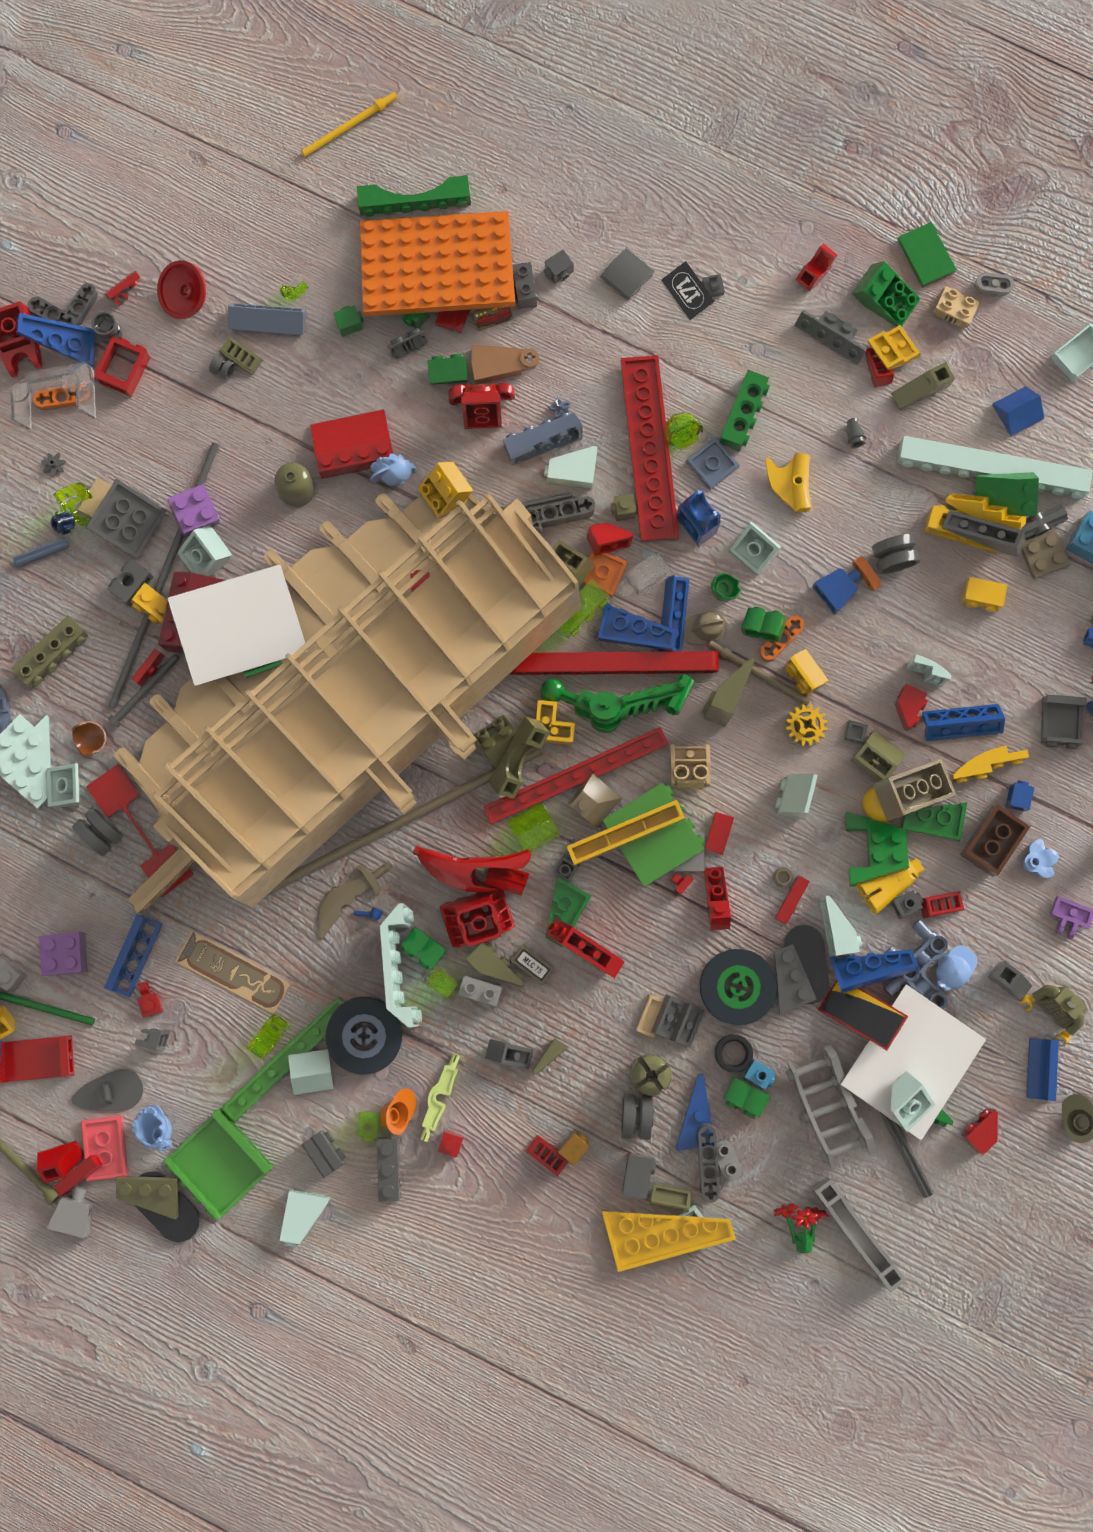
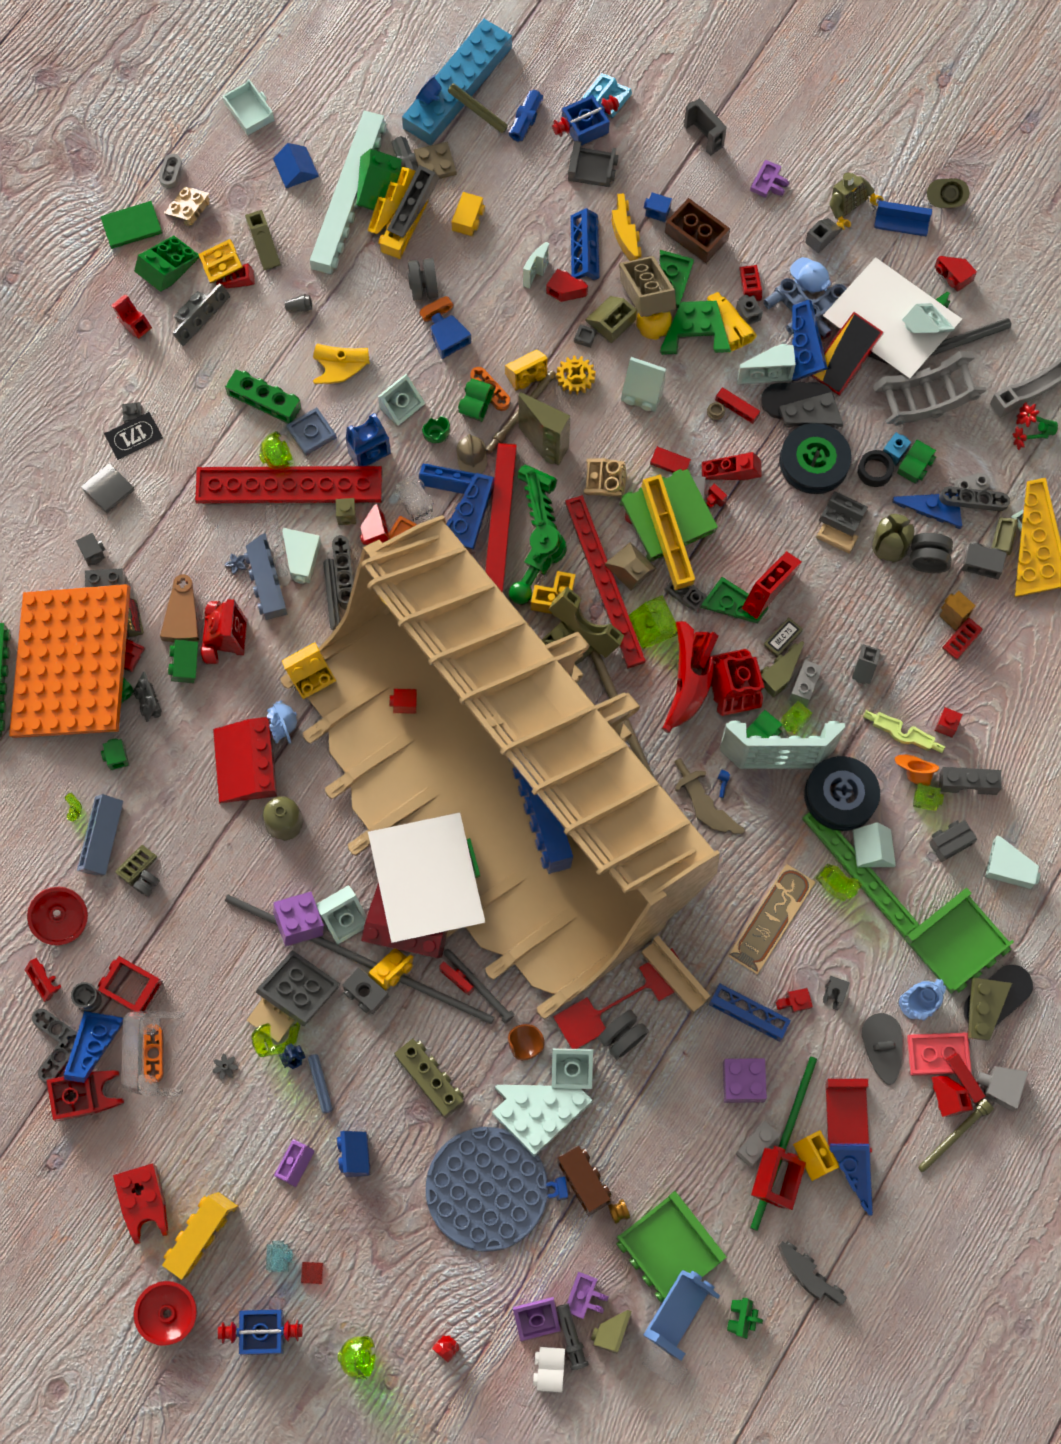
camera: 85 degrees left, 10 degrees down
(552, 1052) = (868, 626): olive slope -> none
(1043, 859) = (716, 199): light blue plate -> none

